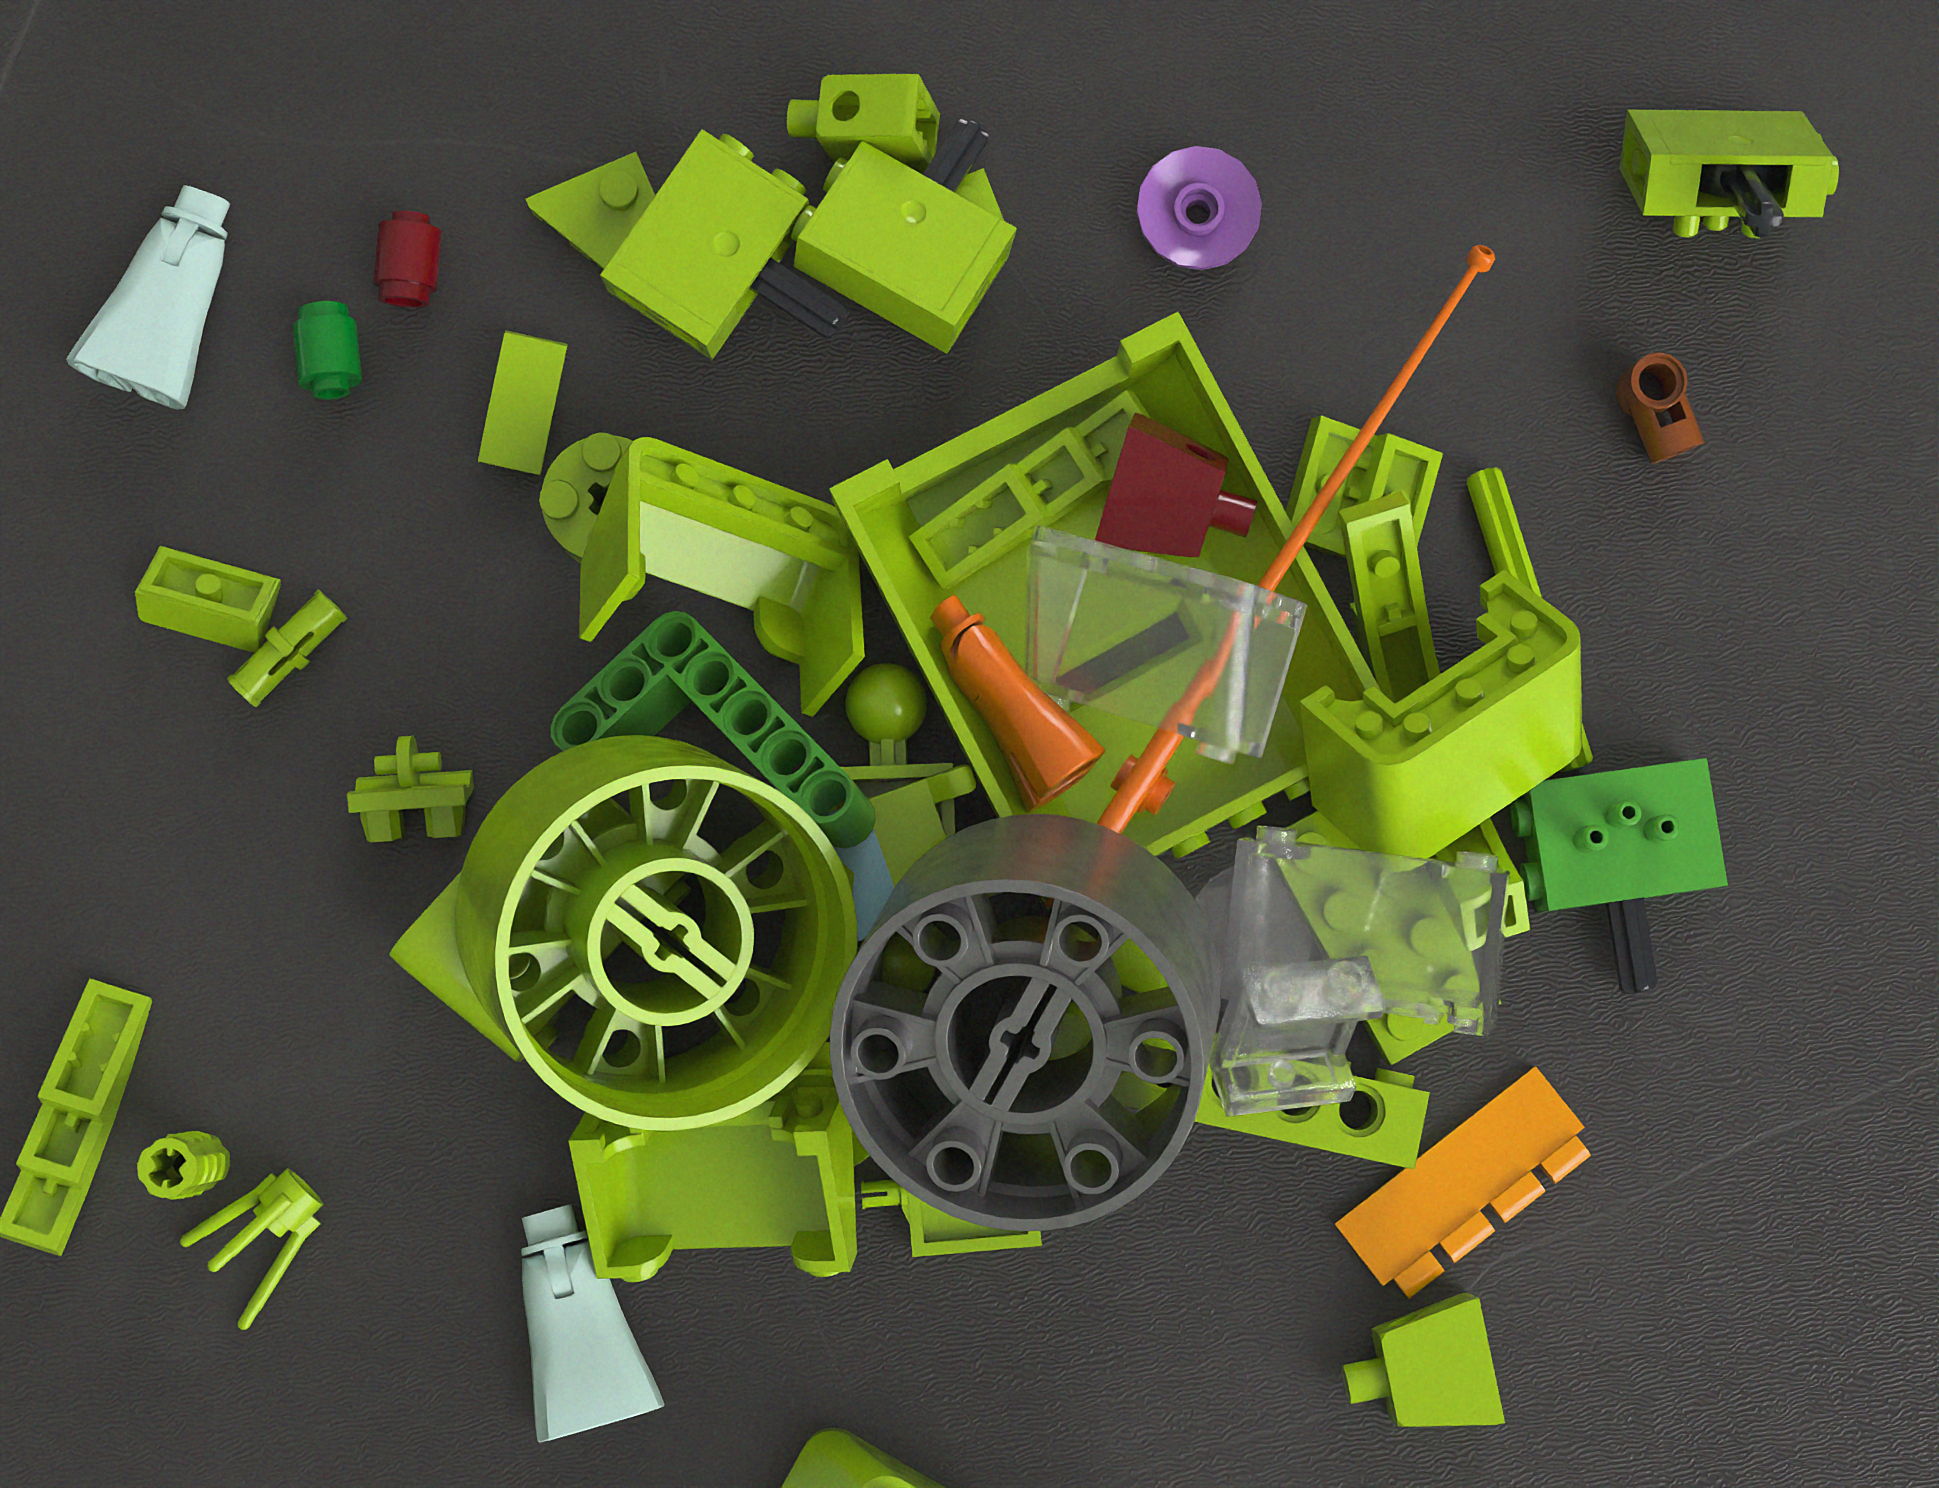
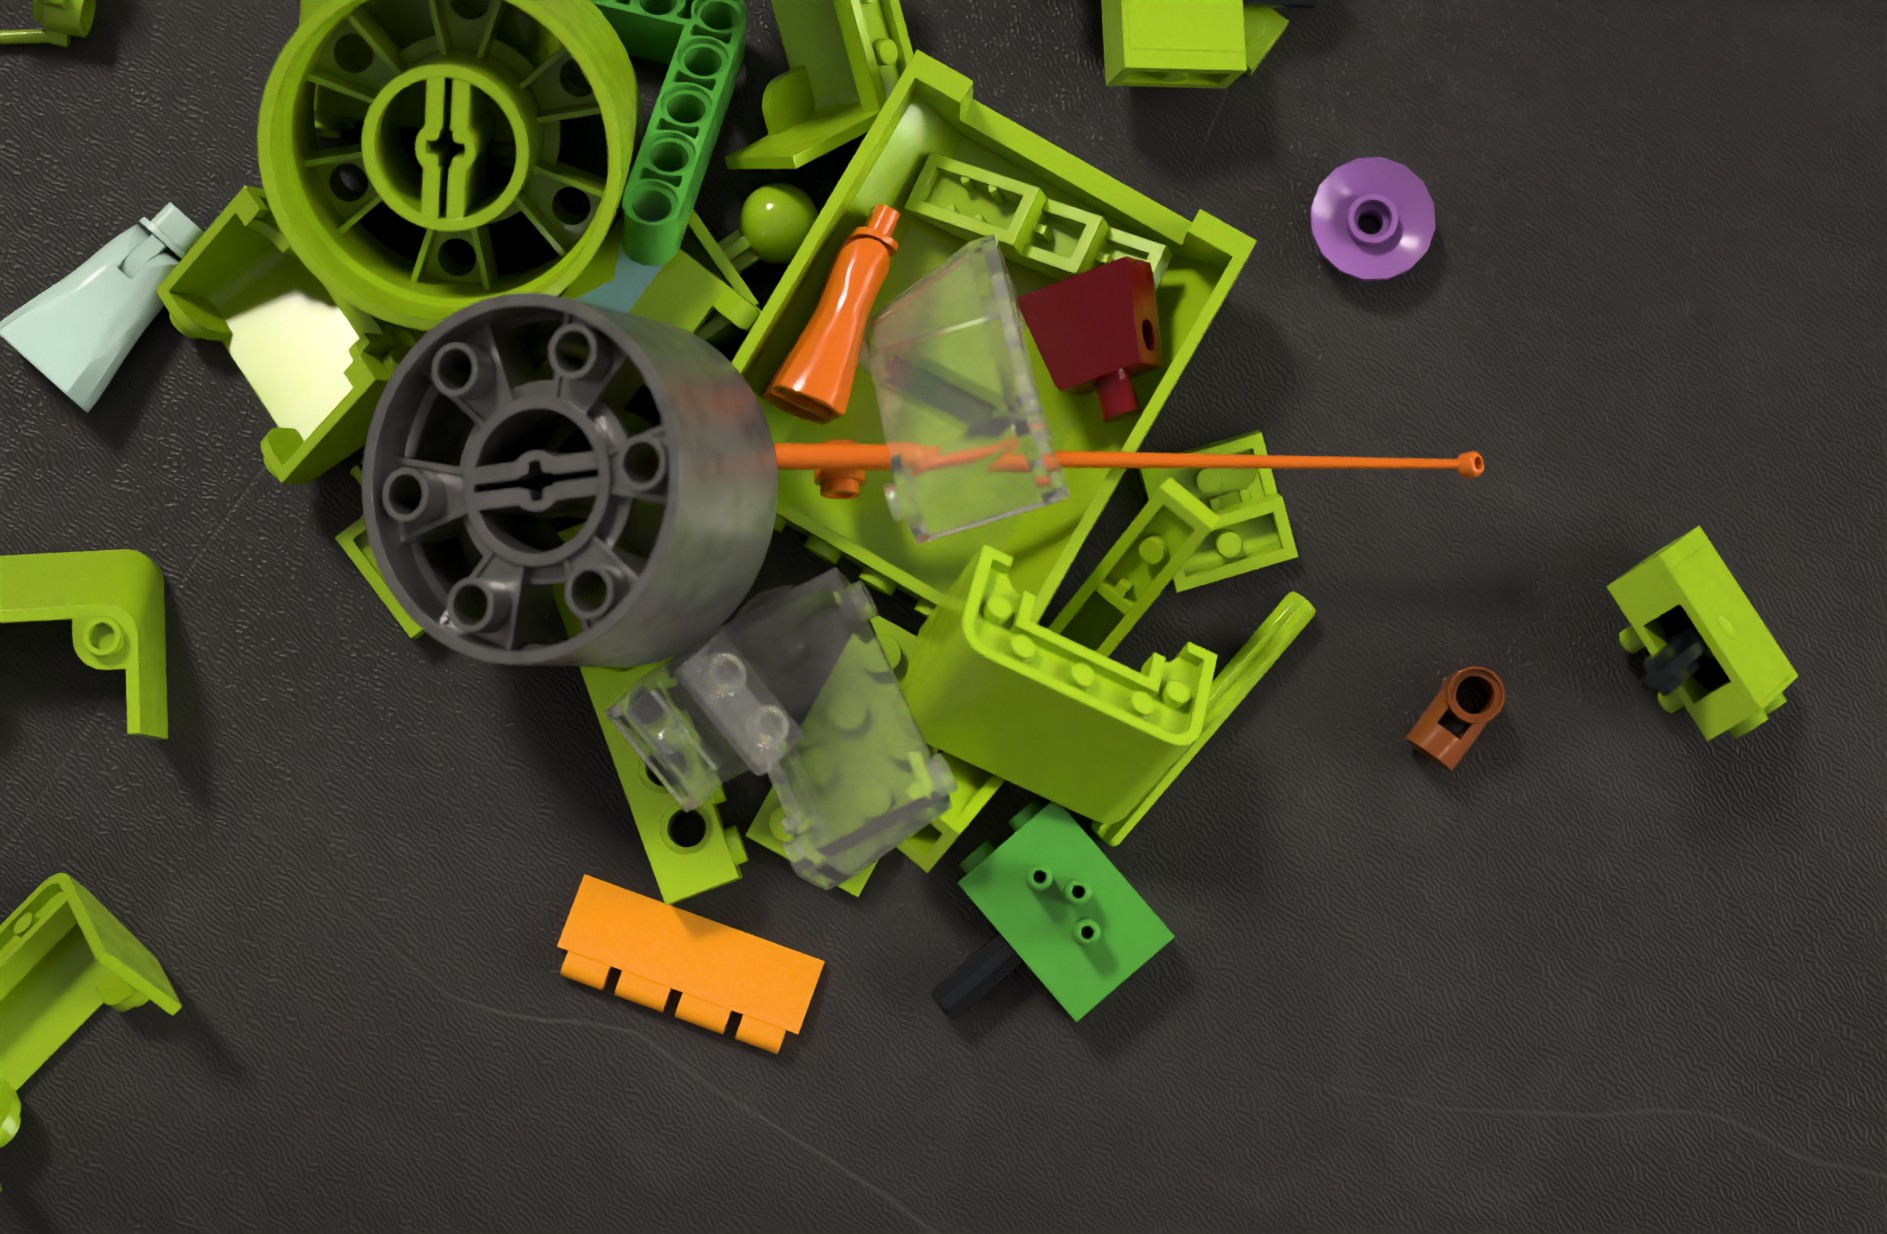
camera: 60 degrees right, 0 degrees up
(1431, 1367) = (510, 1026): lime torso -> none

